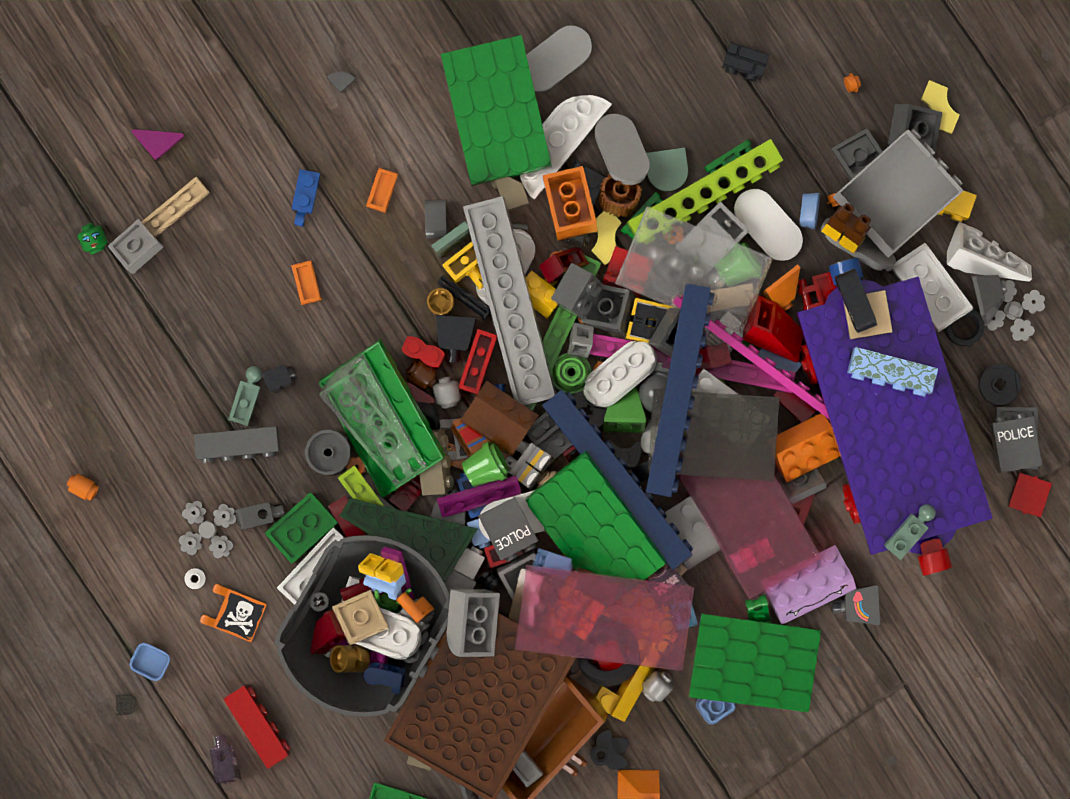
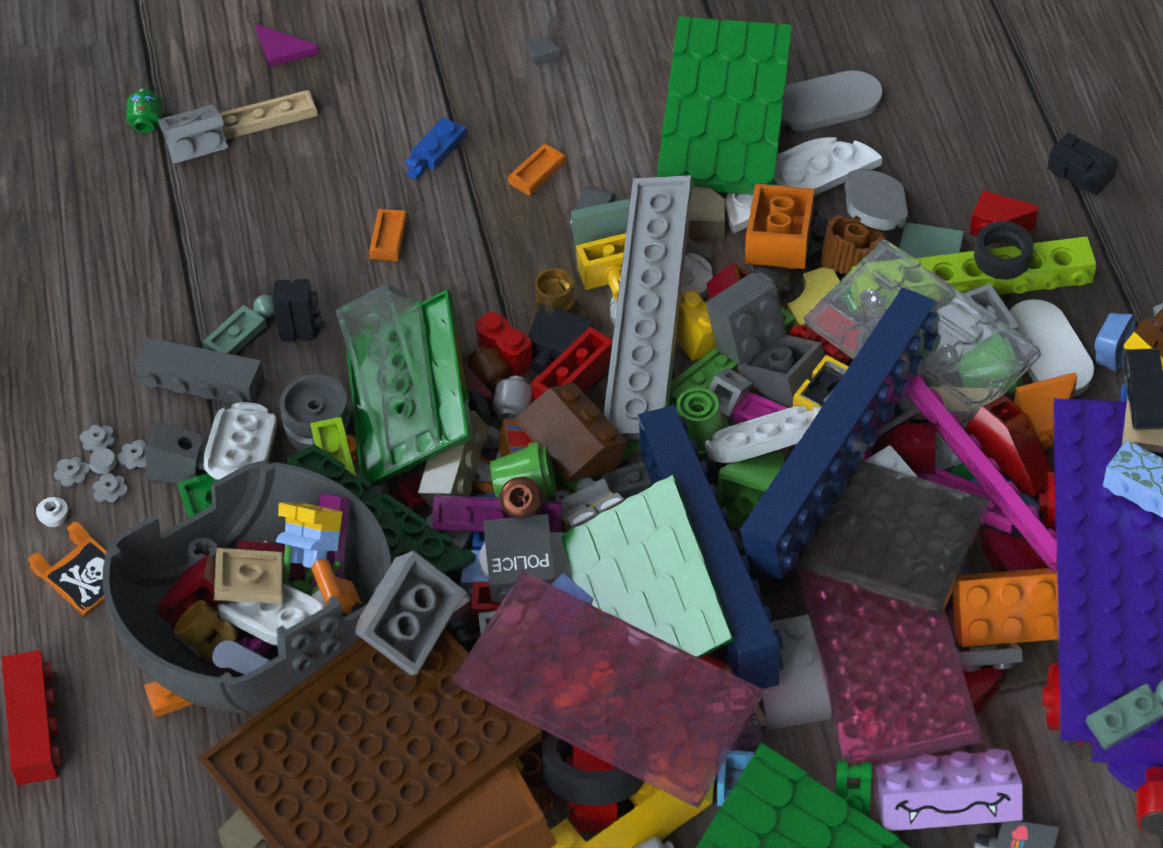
camera: 20 degrees right, 35 degrees down
(291, 491) = (239, 438): none -> white tile
(464, 296) = (593, 307): black axle -> none
(496, 494) = (509, 497): none -> copper head
(704, 128) = (996, 208): none -> red slope
(727, 162) = (1003, 232): none -> black tyre

